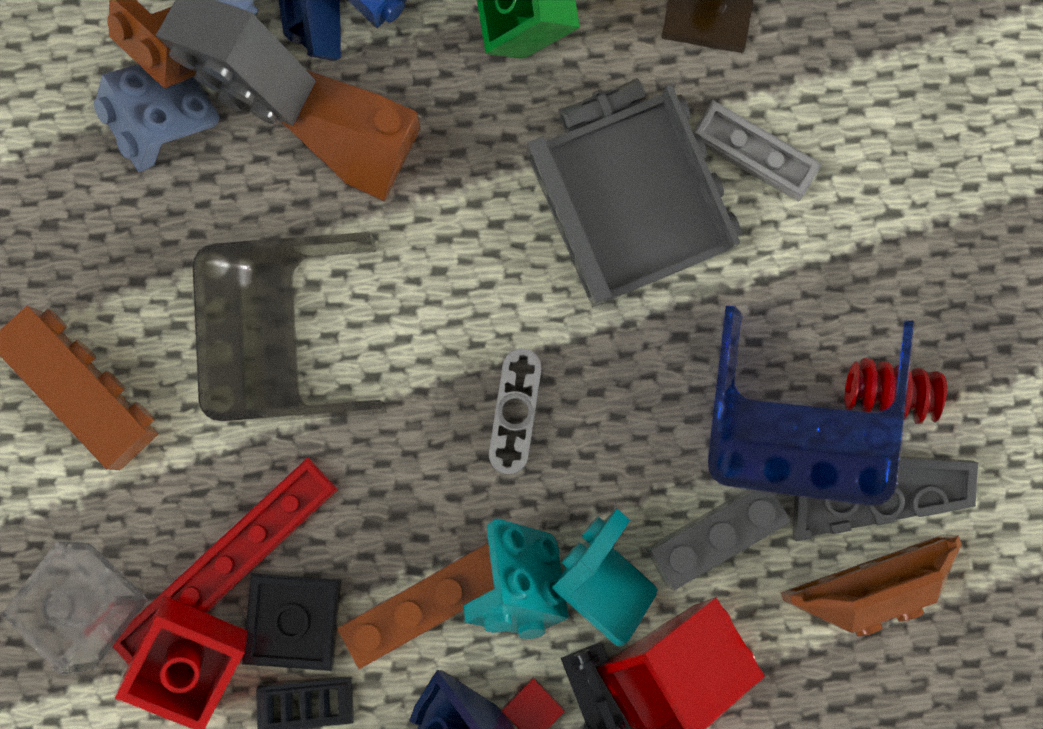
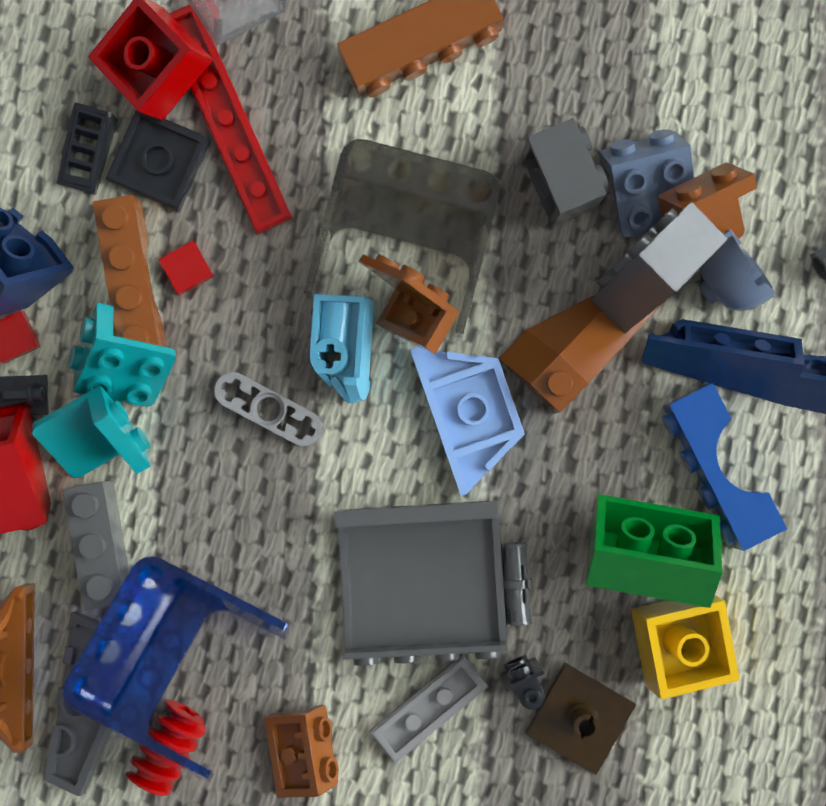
camera: 110 degrees right, 5 degrees up
(169, 190) = (564, 171): none -> dark grey brick
(357, 295) = (414, 310): none -> dark orange bracket
(397, 550) = (186, 268): none -> red tile
(401, 360) = (343, 327): none -> medium azure piece
(446, 209) = (469, 410): none -> light blue wing
(690, 59) = (522, 676): none -> black hinge
(847, 257) = (301, 752): none -> dark orange bracket

